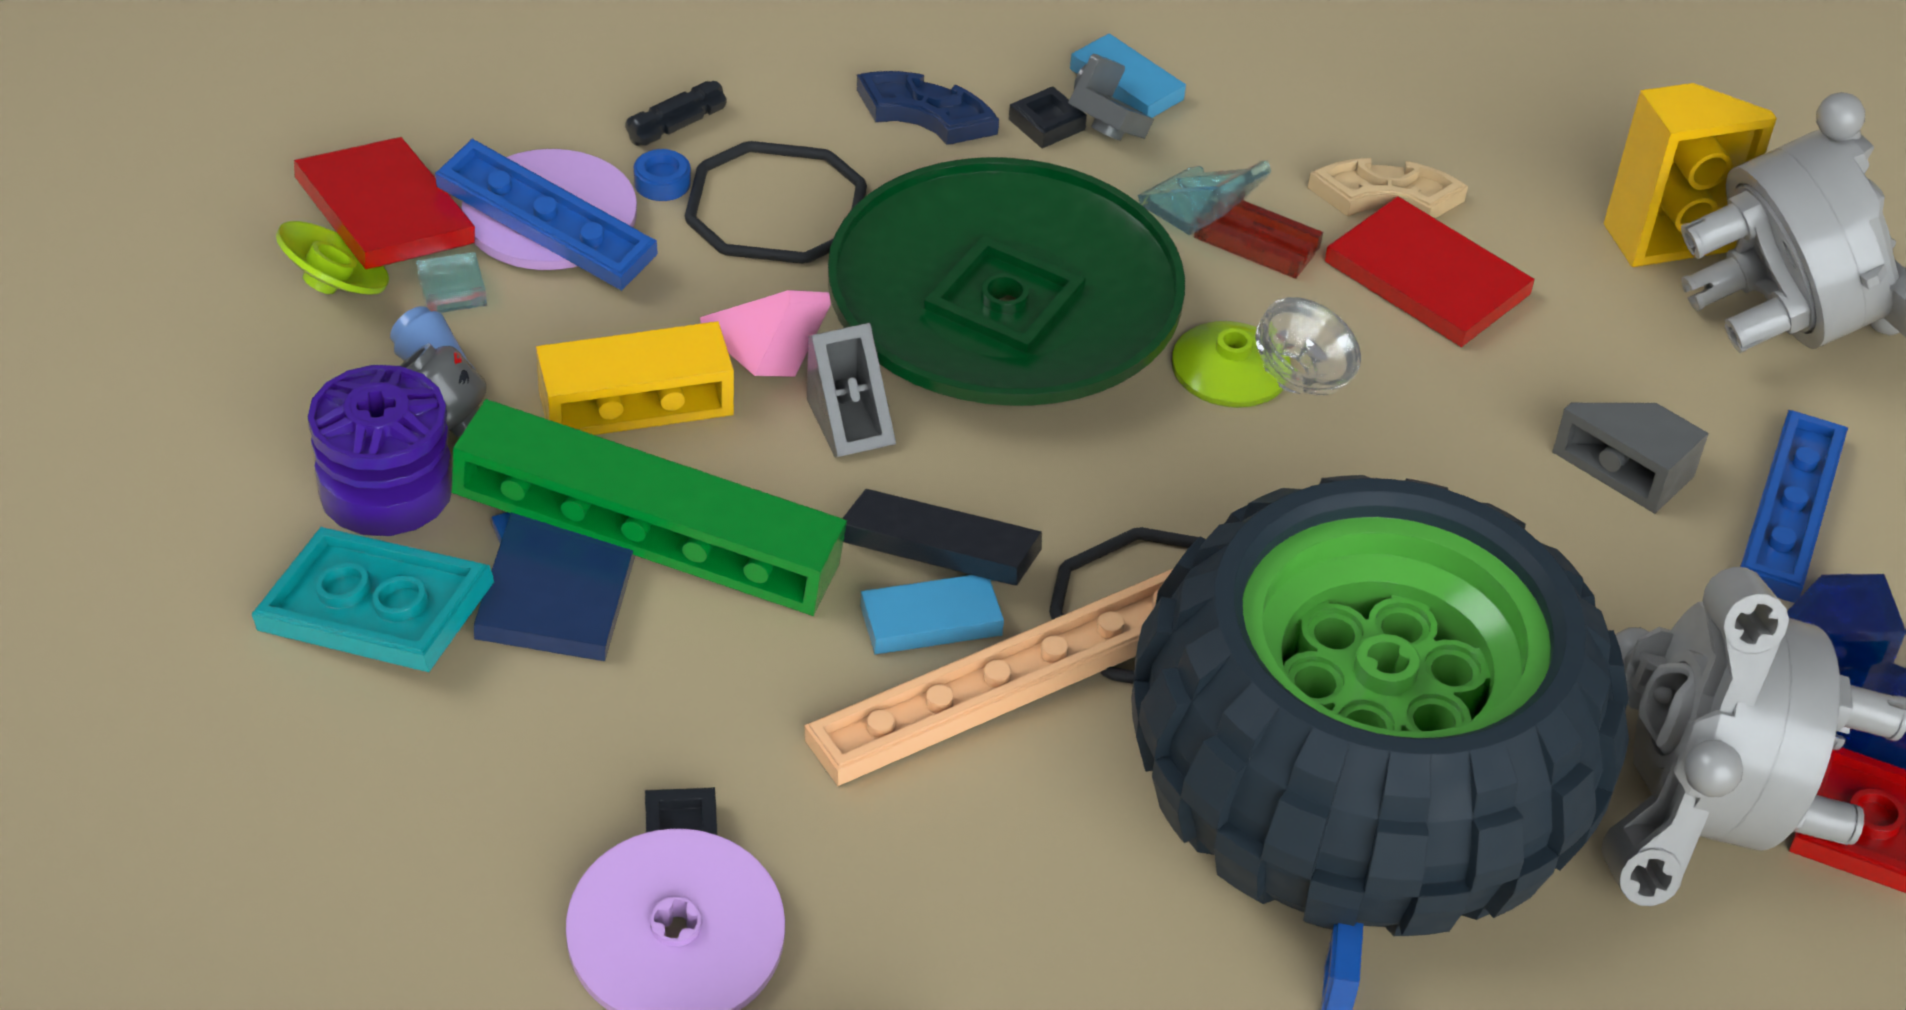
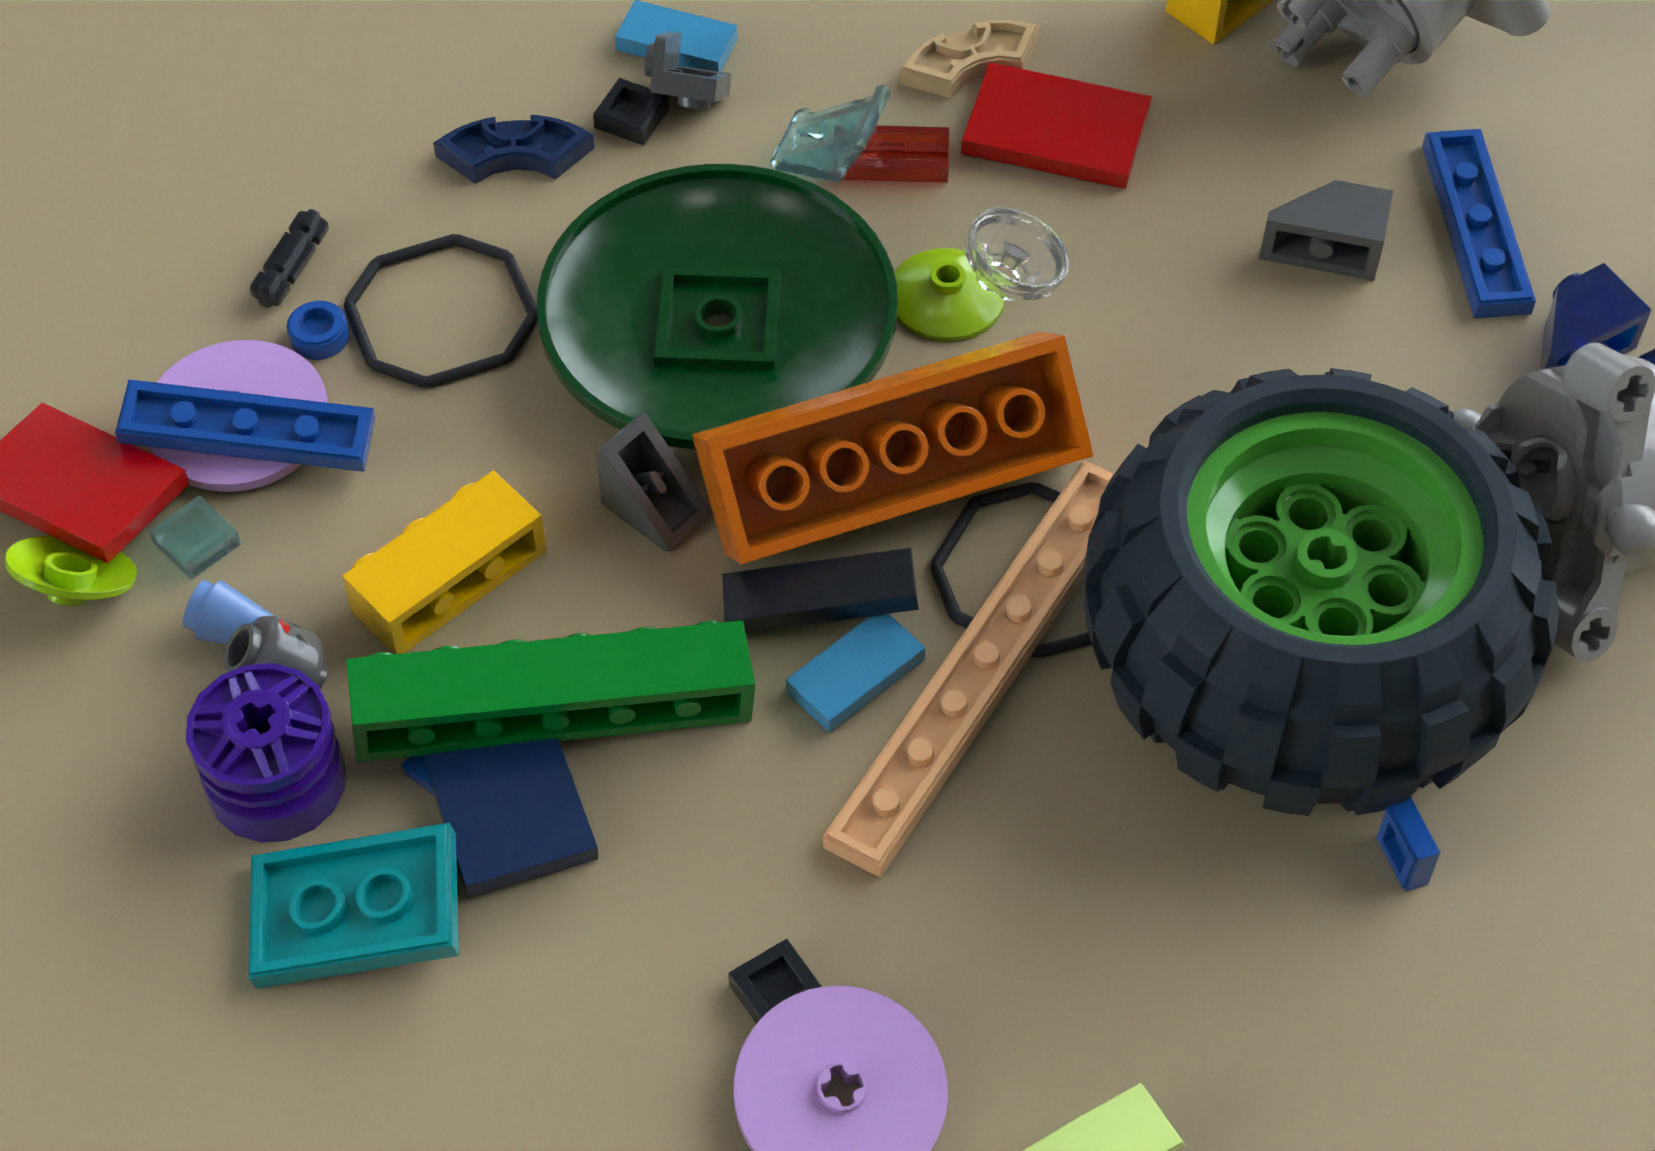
camera: 25 degrees left, 10 degrees up
(772, 331) = (542, 458): bright pink slope -> none
(1075, 439) = (892, 446): none -> orange brick

